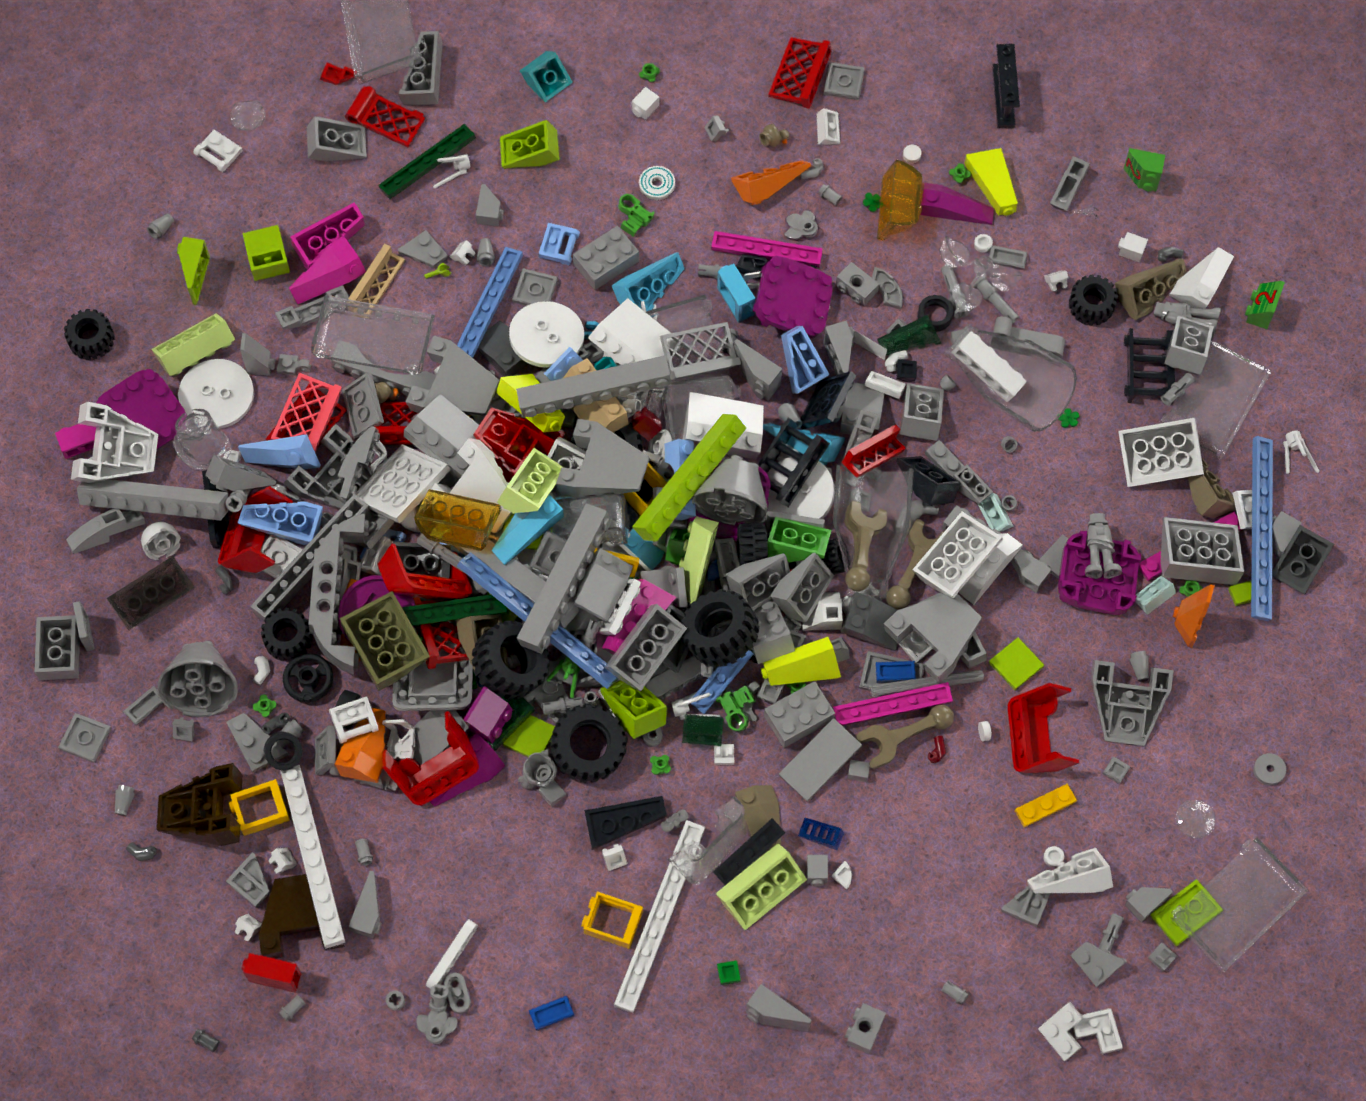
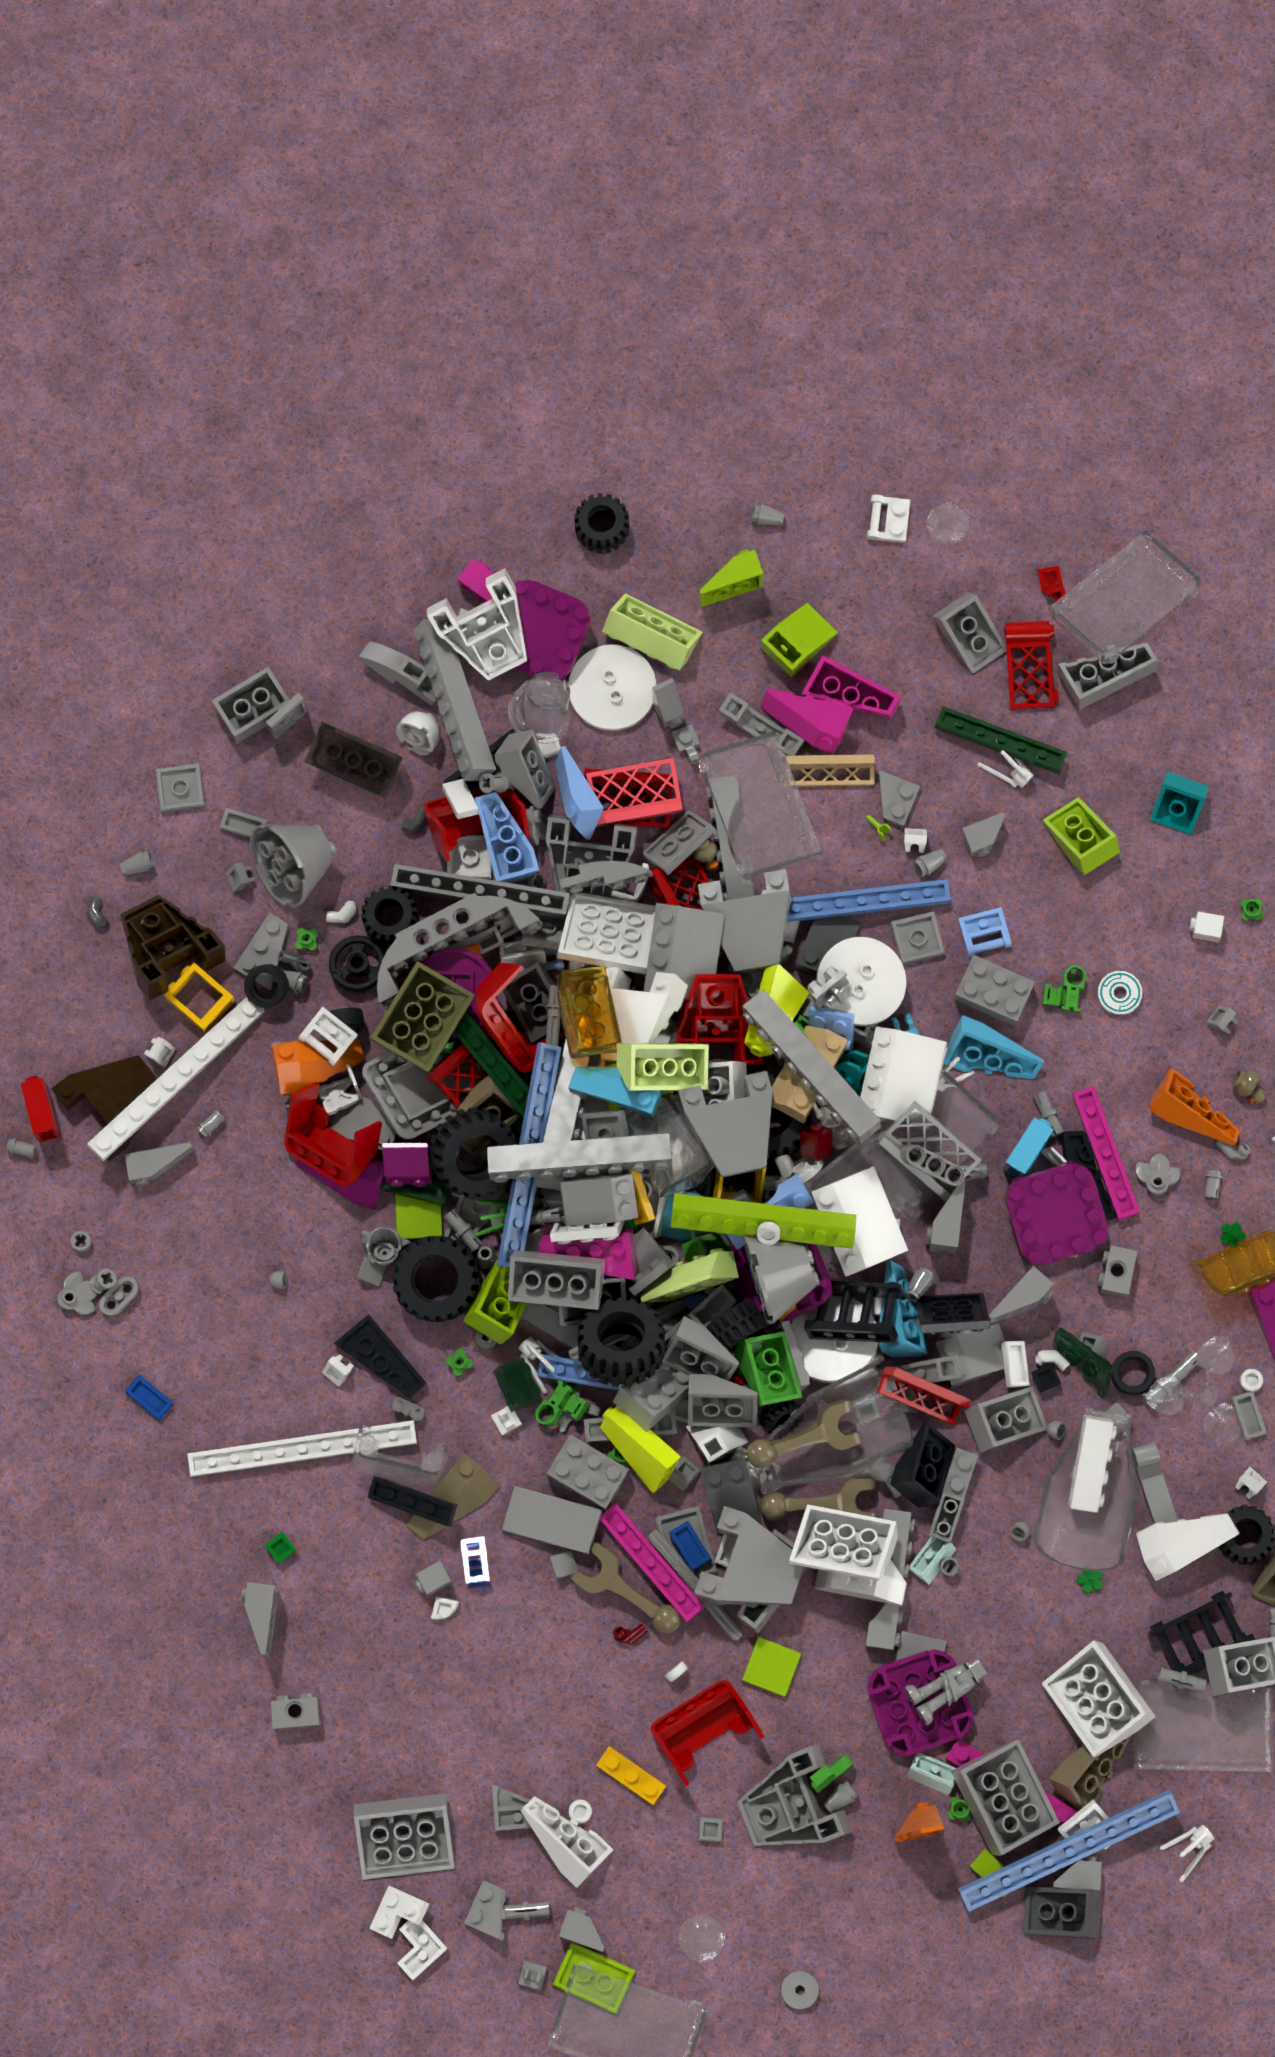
camera: 65 degrees right, 10 degrees up
(232, 532) = (460, 799): none -> white tile
(249, 881) = (122, 1033): light grey wing -> none
(249, 925) = (78, 1058): white tile -> none
(325, 750) = (288, 1026): light grey tile -> none
(452, 954) = (154, 1269): white beam -> none
(516, 865) = (278, 1279): none -> light grey hinge
(538, 345) = (831, 990): none -> light grey hips
(594, 904) = (274, 1427): yellow window -> none
(703, 473) = (768, 1233): none -> white tile
(713, 351) = (922, 1161): none -> light grey beam
(761, 886) = (384, 1532): yellowish green slope -> none
(802, 360) = (986, 1263): light blue wedge -> none
(869, 345) = (1052, 1319): white sticker -> none
(888, 287) = (1137, 1306): light grey tile -> none
(955, 992) = (381, 1783): light grey pin -> none
(990, 293) = (1191, 1420): light grey pin -> none
(1005, 995) = (404, 1836): none -> light grey slope
(1079, 336) = (1176, 1544): none -> white wedge
(1117, 654) = (826, 1775): none -> bright green piece

